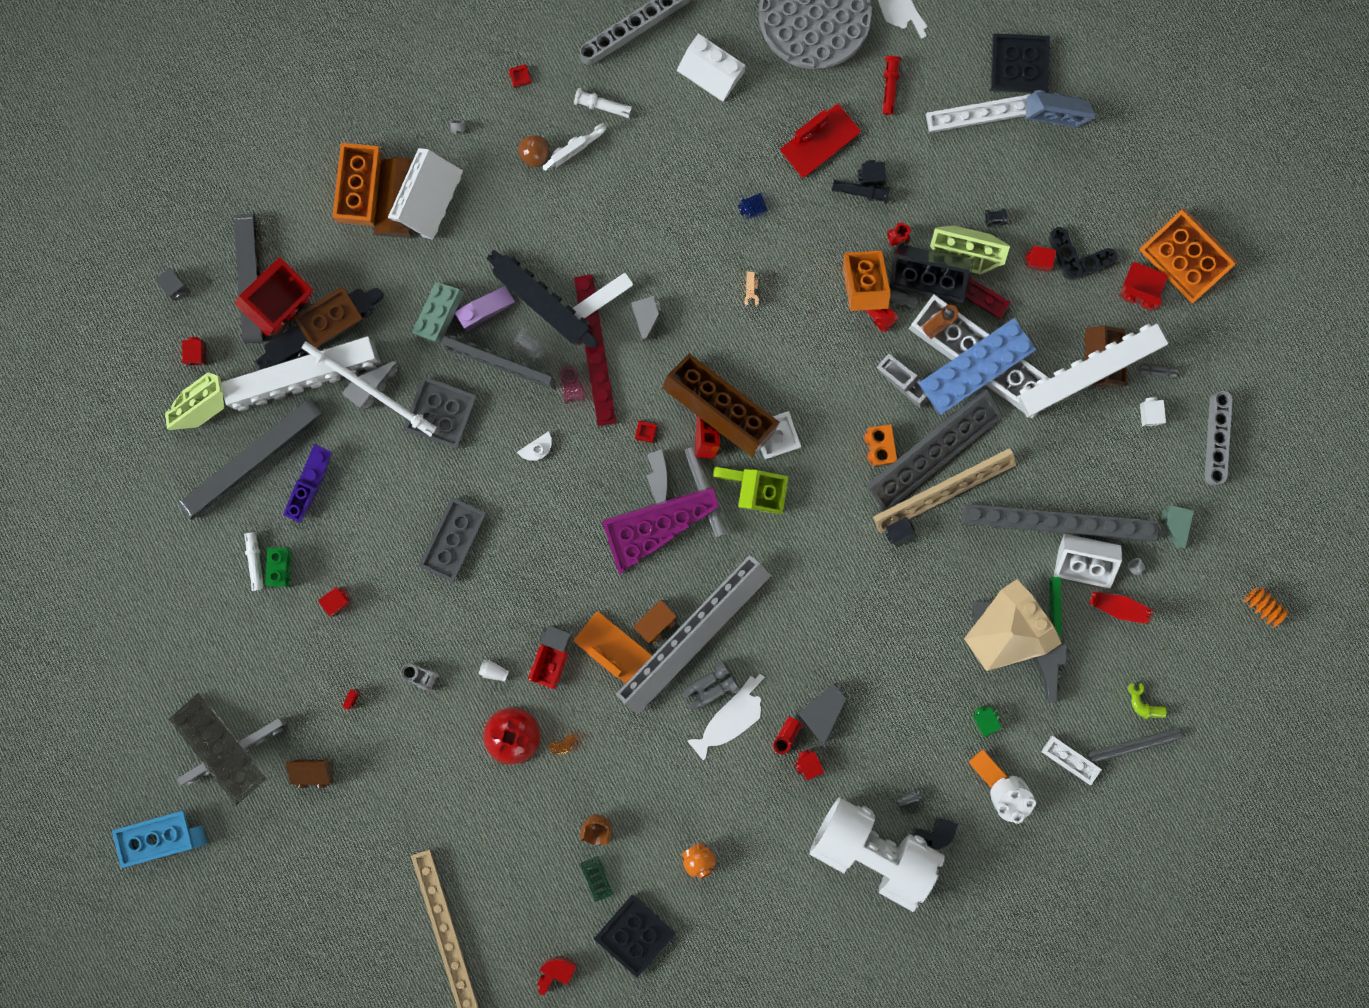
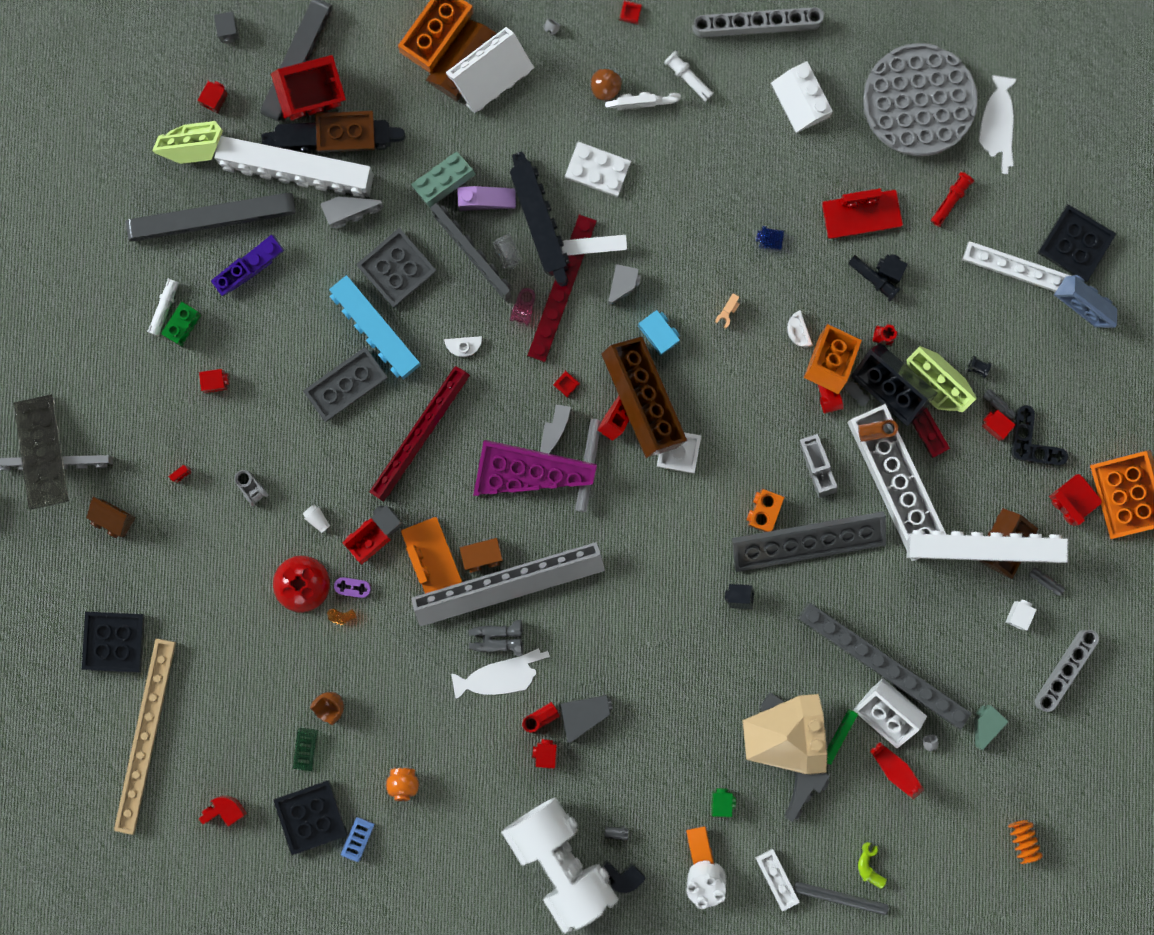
camera: 20 degrees right, 0 degrees up
(374, 880) = (112, 642): none -> black plate
(416, 420) = (371, 262): white bar -> none
(450, 475) = (375, 327): none -> medium azure brick
(541, 546) = (419, 433): none -> dark red plate
(556, 709) = (351, 592): none -> medium lavender beam
(568, 229) = (597, 169): none -> white plate
(692, 948) = (356, 857): none -> medium blue slope
(701, 341) = (659, 332): none -> medium azure brick
(728, 474) = (619, 463): lime beam -> none
(763, 491) = (639, 493): lime brick -> none
(822, 273) = (798, 331): none -> white plate
(946, 489) = (801, 581): tan plate -> none
(977, 366) = (888, 488): medium blue plate -> none
(1031, 240) = (999, 404): none -> dark grey axle

